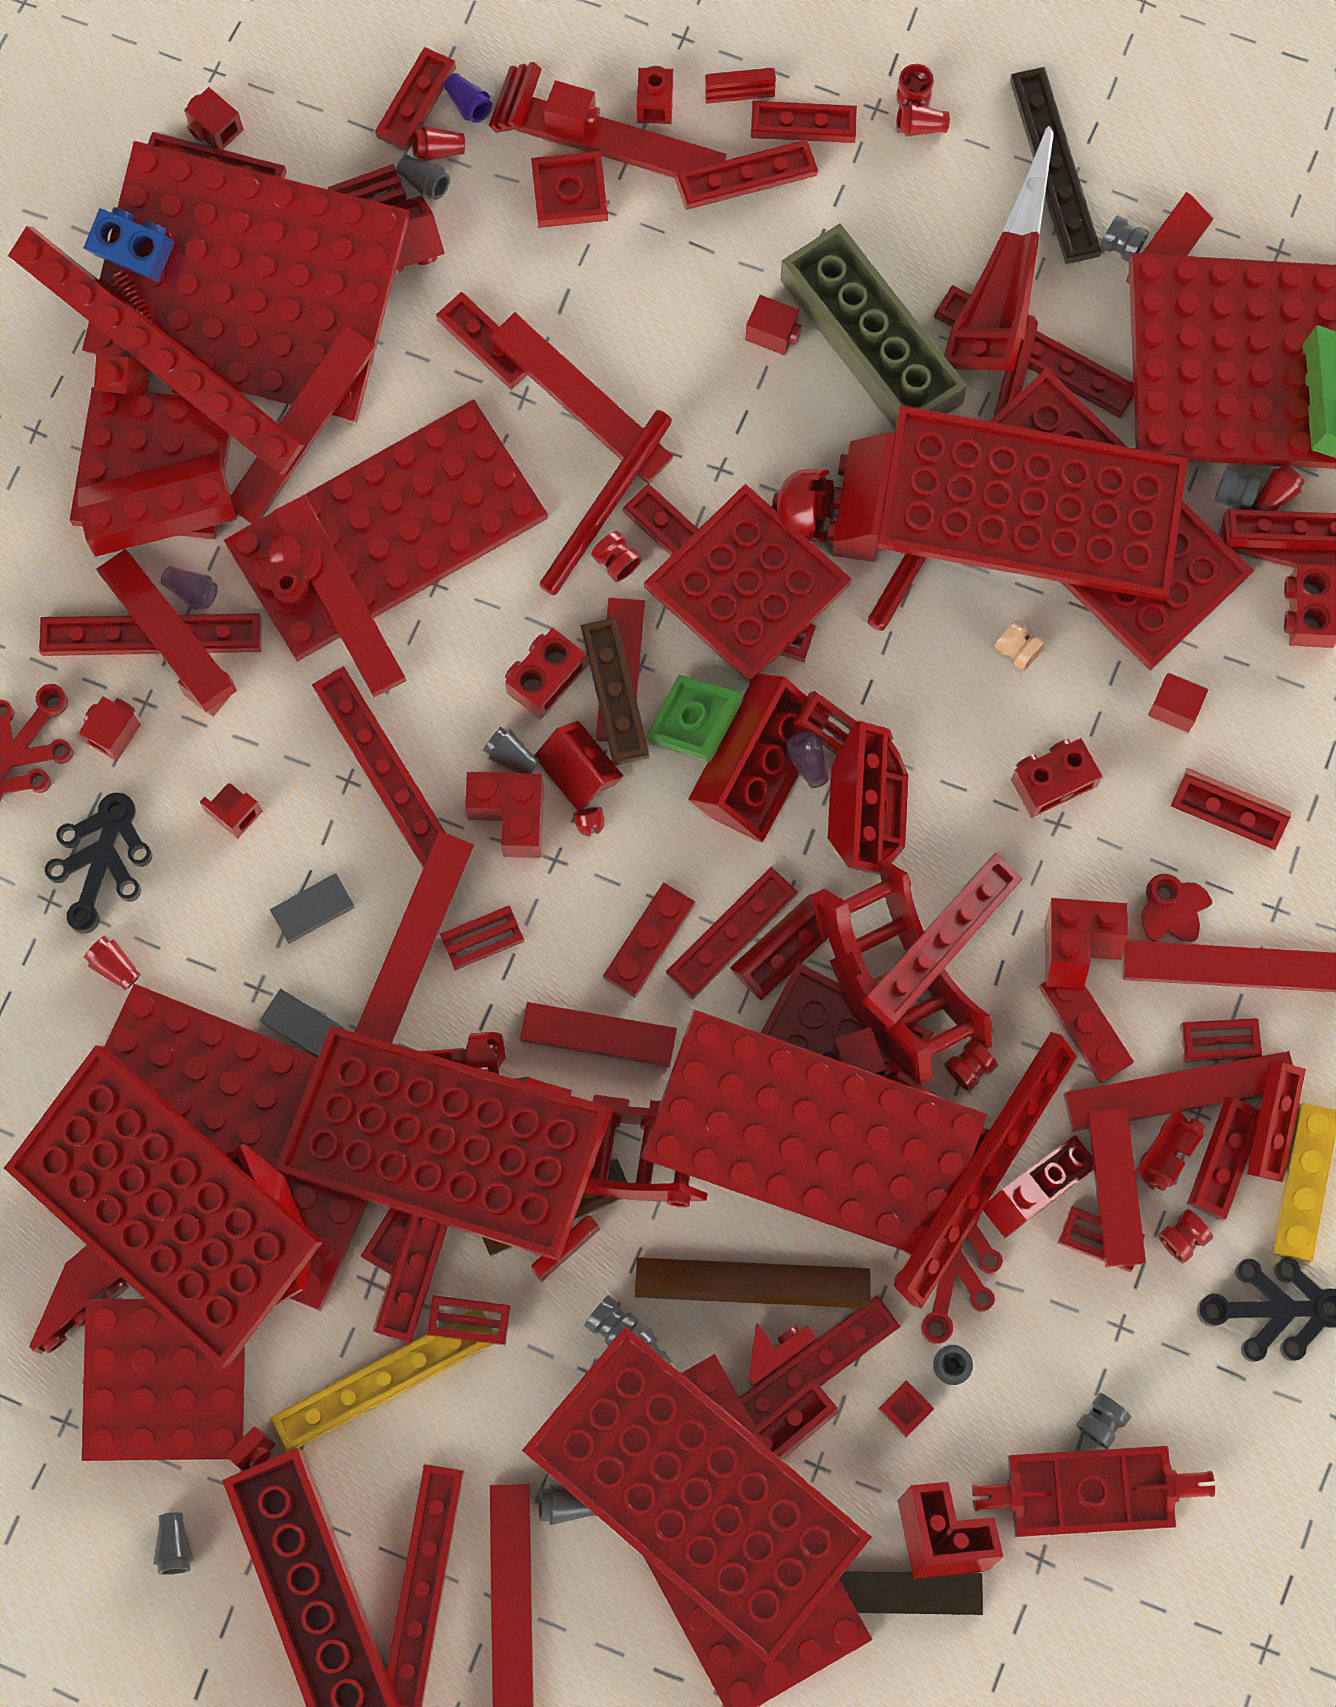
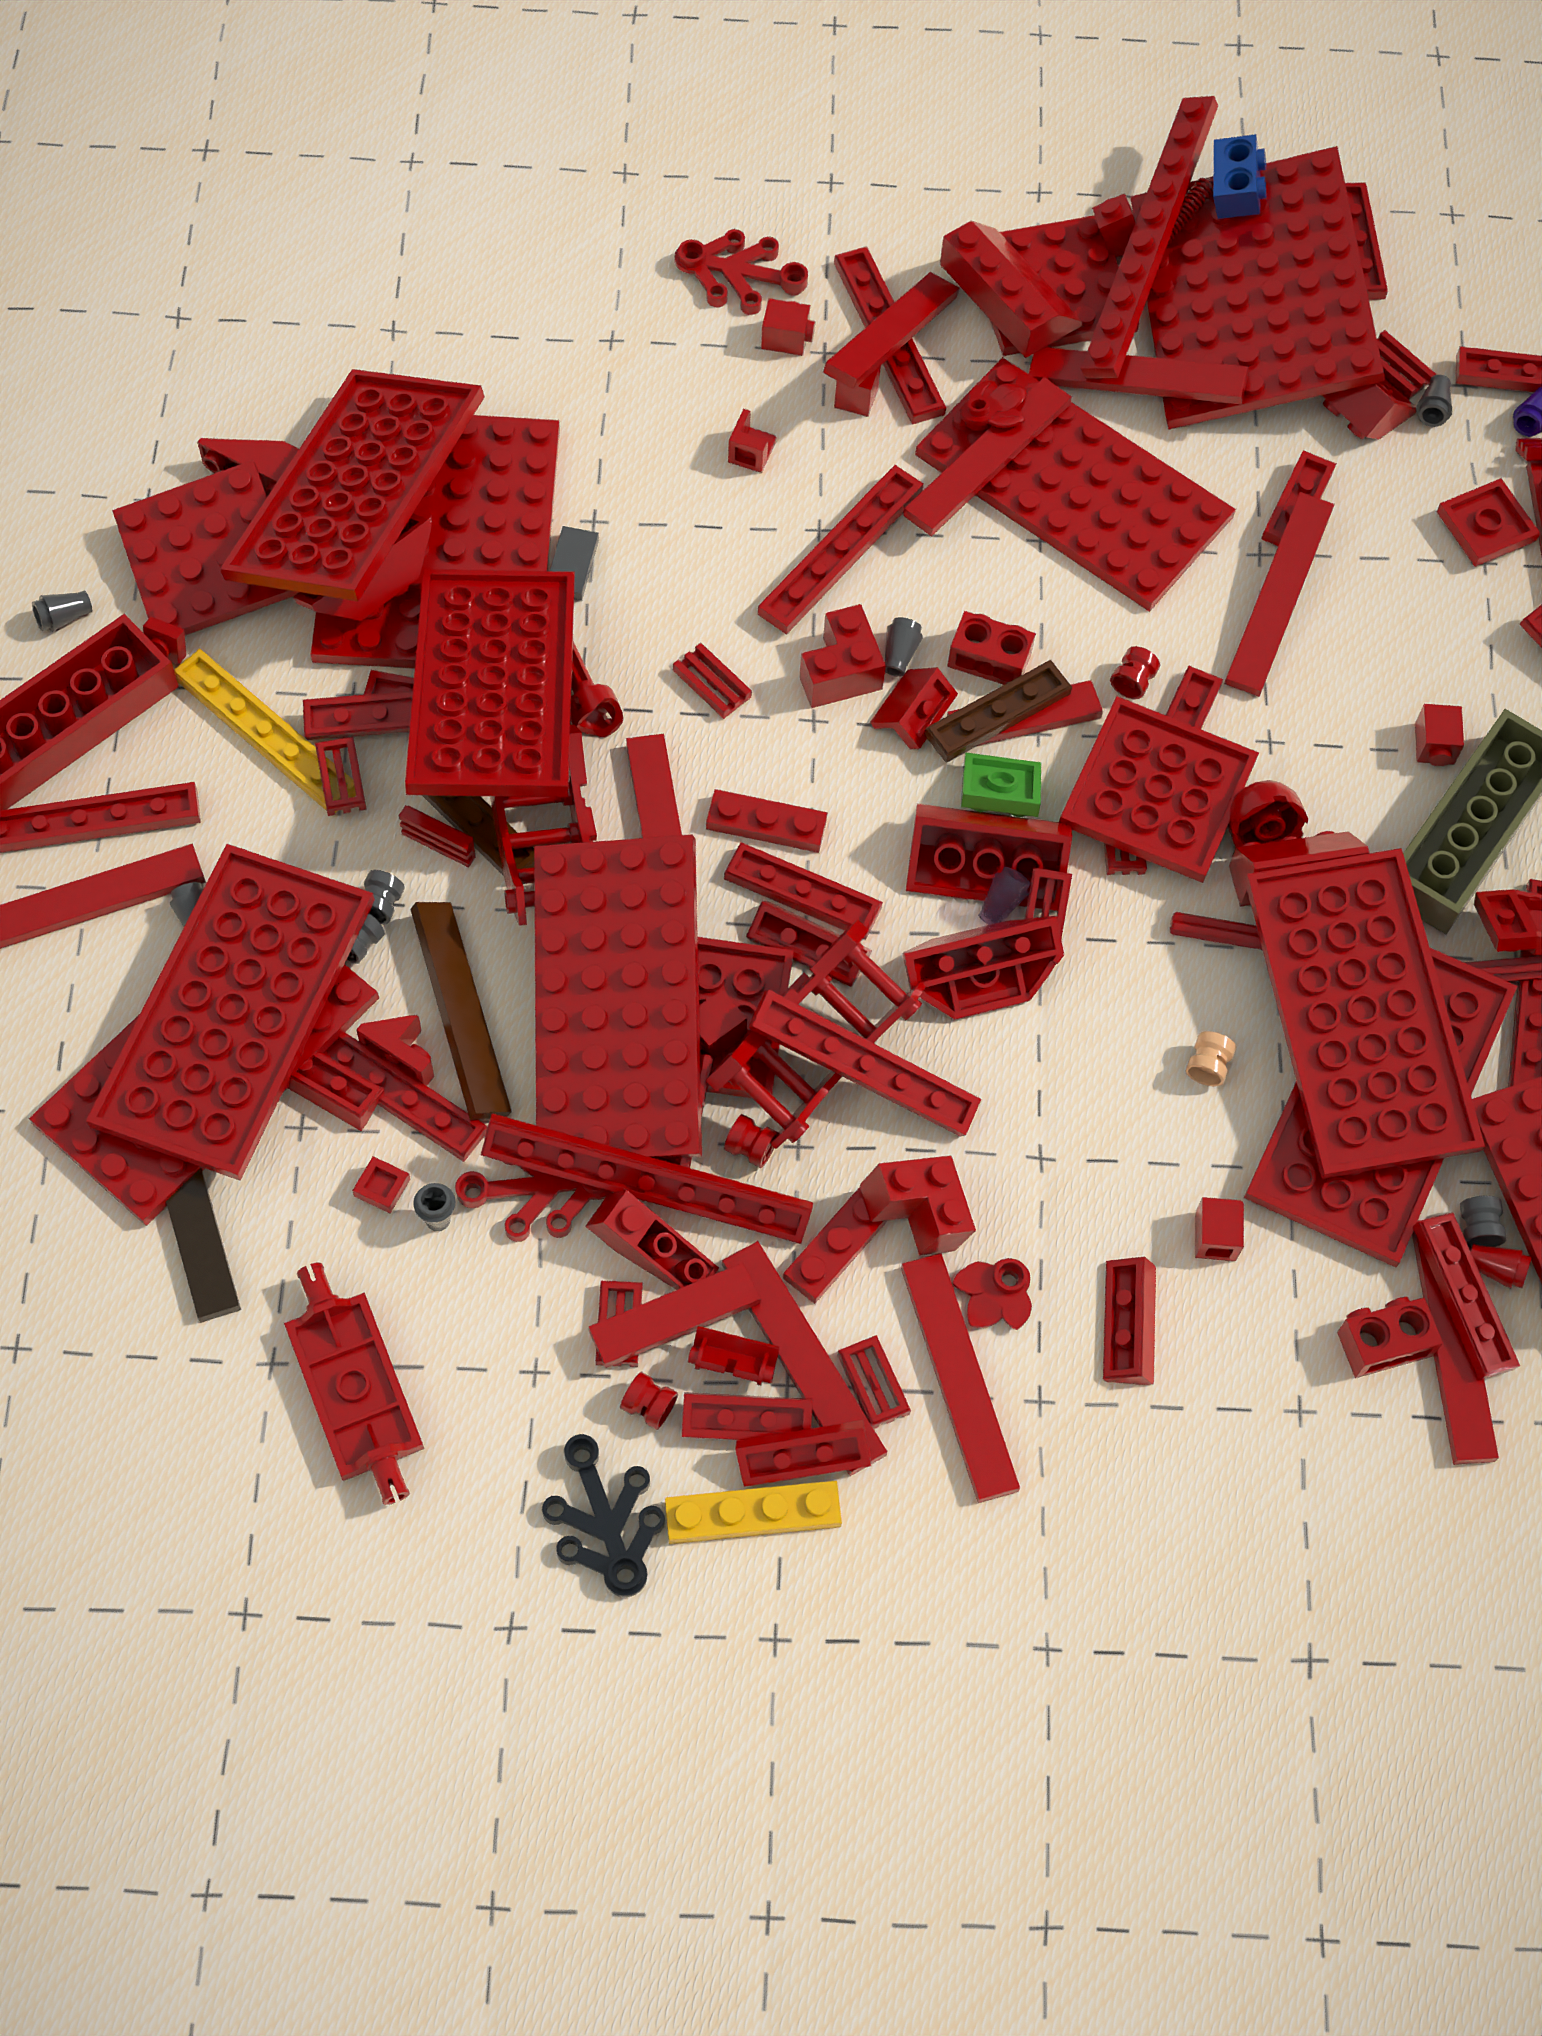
camera: 65 degrees right, 10 degrees down
(100, 856) = (666, 360): black plant -> none
(111, 962) = (572, 396): red cone -> none
(191, 587) = (945, 347): clear purple cone -> none
(212, 119) = (1400, 221): red brick -> none
(312, 908) = (685, 536): dark grey tile -> none
(414, 937) = (684, 620): red tile -> none
(436, 143) = (1474, 400): red cone -> none
(588, 819) = (864, 731): red hinge -> none
(605, 502) = (1186, 645): red axle -> none
(938, 1541) = (253, 1247): red brick -> none
(1055, 776) = (1086, 1133): red brick -> none
(1103, 1420) = (428, 1375): dark grey wheel -> none

